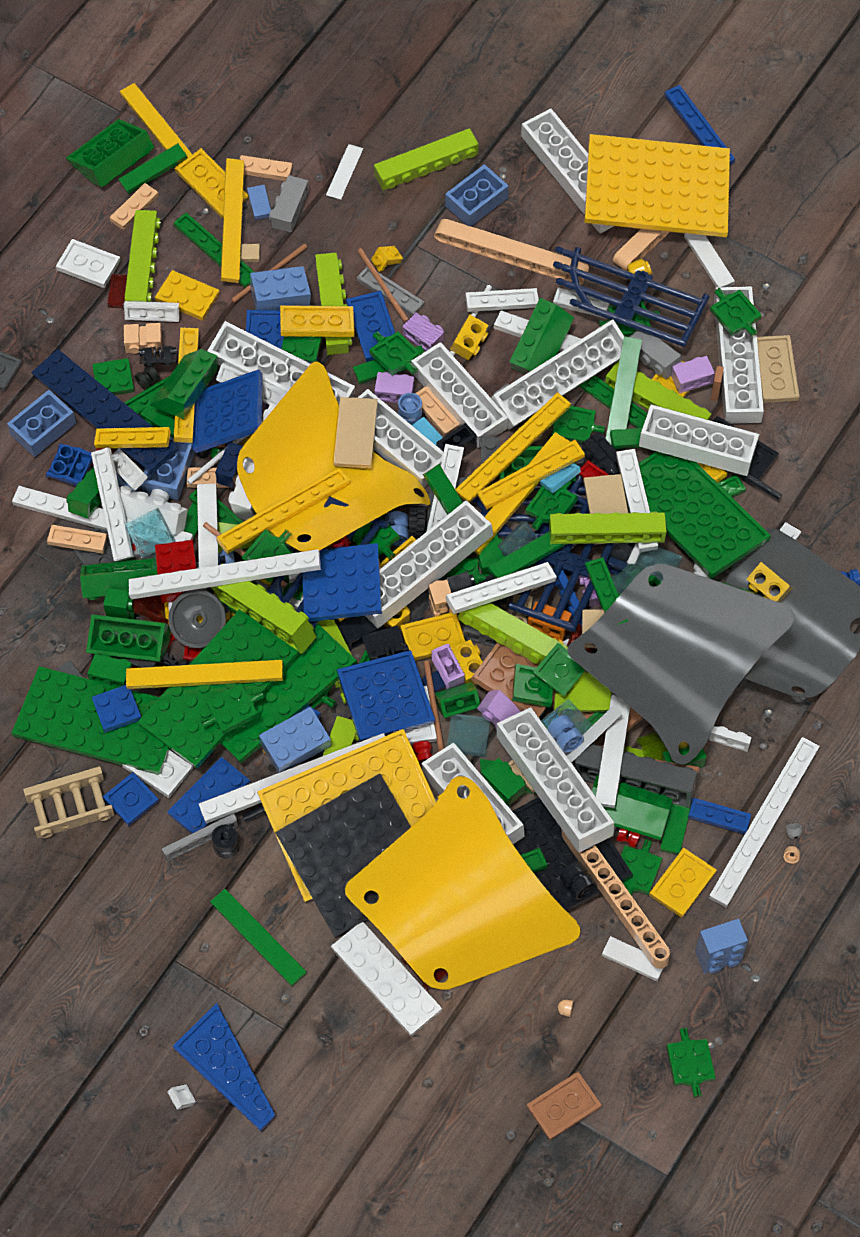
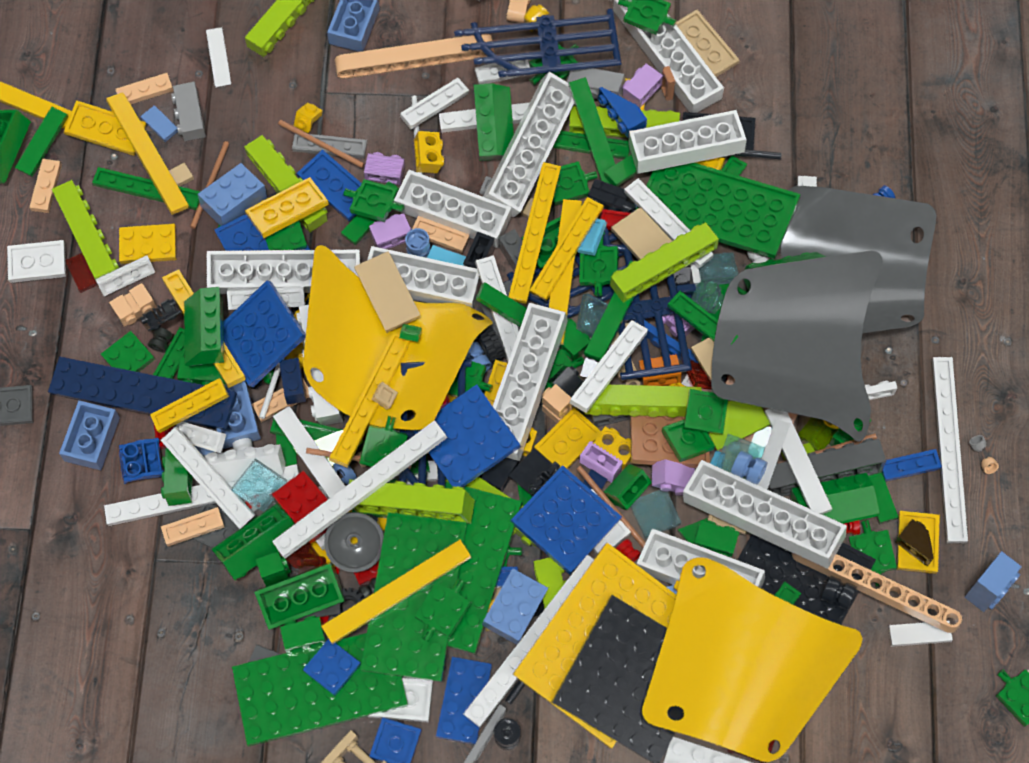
camera: 30 degrees left, 5 degrees up
(295, 513) = (384, 395): none -> tan tile
(353, 475) = (410, 332): none -> green tile
(565, 1007) = (893, 711): light nougat hinge -> none
(659, 386) = (625, 113): none -> blue slope
(677, 877) = (916, 541): none -> dark brown slope
(771, 581) = (823, 233): yellow brick -> none

